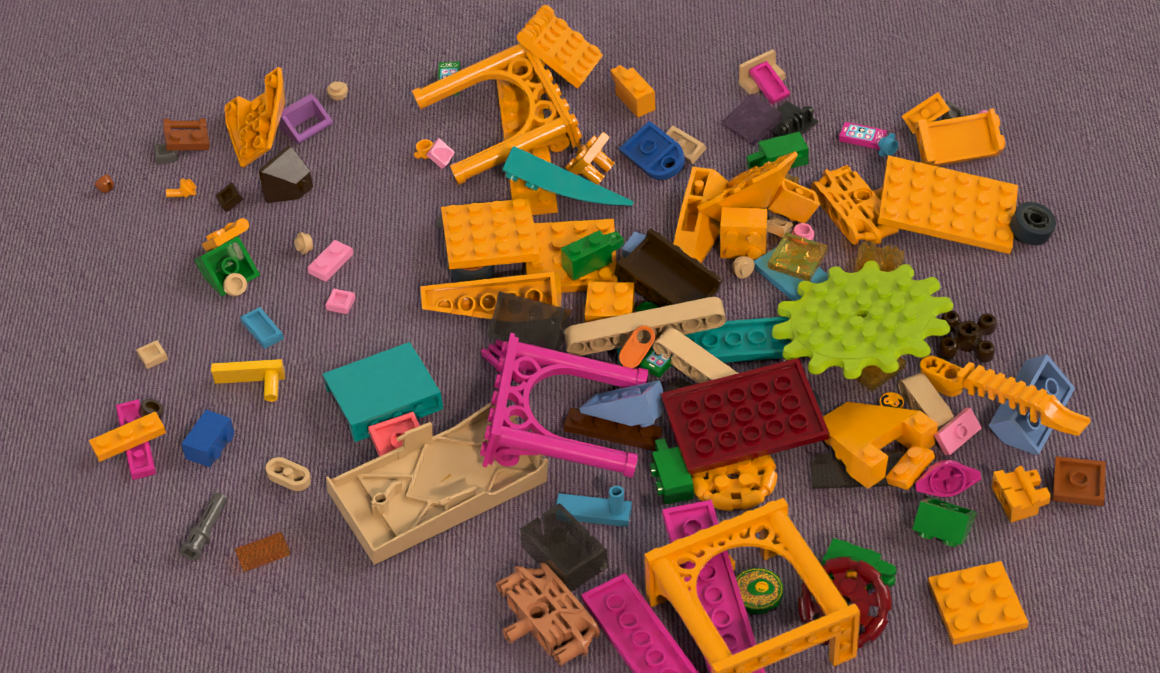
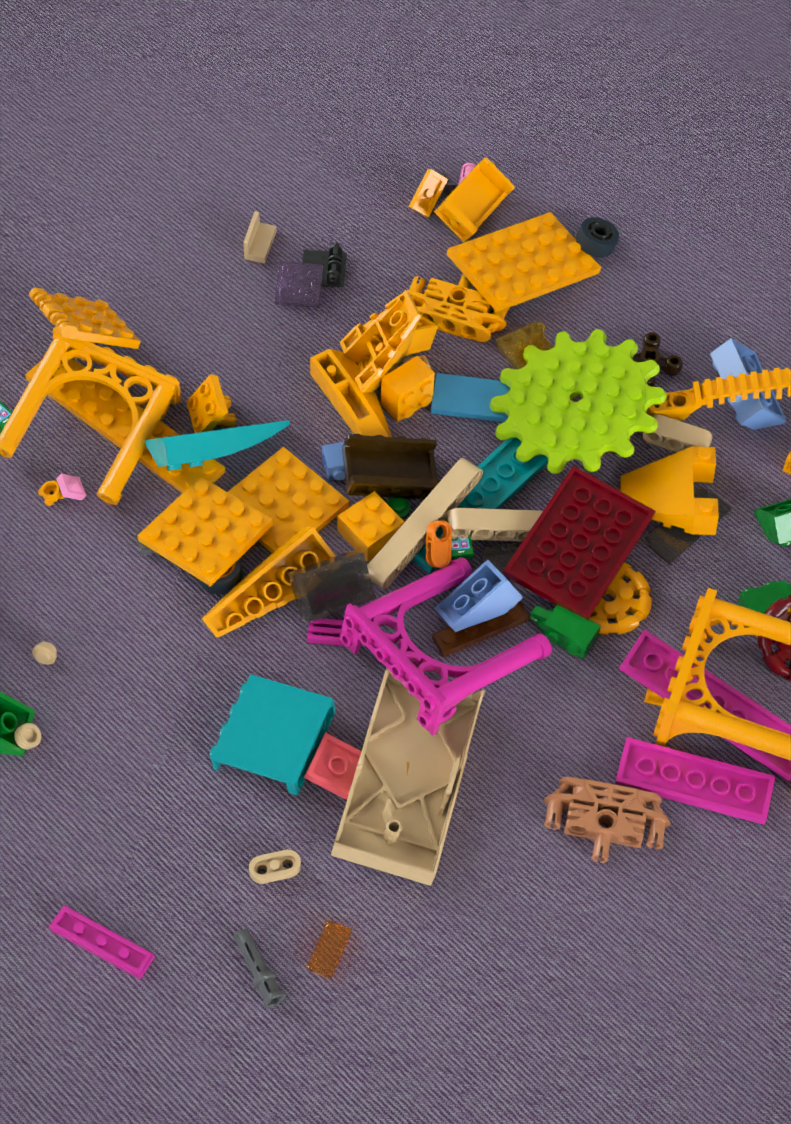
camera: 50 degrees left, 10 degrees up
(127, 436) = (99, 946): light orange plate -> none
(149, 406) = (87, 905): dark brown tile -> none
(152, 354) = (23, 855): tan tile -> none
(208, 438) = (172, 890): blue brick -> none
(262, 328) = (94, 756): dark azure tile -> none
(266, 370) = (155, 790): yellow piece -> none
(330, 260) = (83, 652): bright pink plate -> none
(340, 301) = (135, 682): bright pink tile -> none
(564, 547) = (557, 753): clear smoke piece -> none
(590, 253) = (311, 490): green hinge -> none
(599, 510) = (542, 703): dark azure piece -> none
(633, 90) = (172, 320): light orange hinge -> none
(651, 151) = (249, 365): blue tile -> none
(691, 147) = (266, 342): tan plate -> none
(743, 267) = (429, 418): tan plate -> none
(760, 590) = (729, 669): tile -> none
(769, 82) = (275, 242): dark pink tile -> none
(779, 146) = (352, 300): green hinge -> none
(798, 257) = (466, 381): clear yellow plate -> none
(803, 230) = (441, 358): bright pink plate -> none
(861, 135) = (393, 243): tile -> none
(888, 145) = (424, 239): dark azure plate -> none
(892, 399) = (652, 453): light orange tile -> none
(910, 467) = (723, 489): light orange plate -> none
(947, 478) = (755, 485): dark pink hat -> none
(957, 431) = (723, 443): bright pink plate -> none

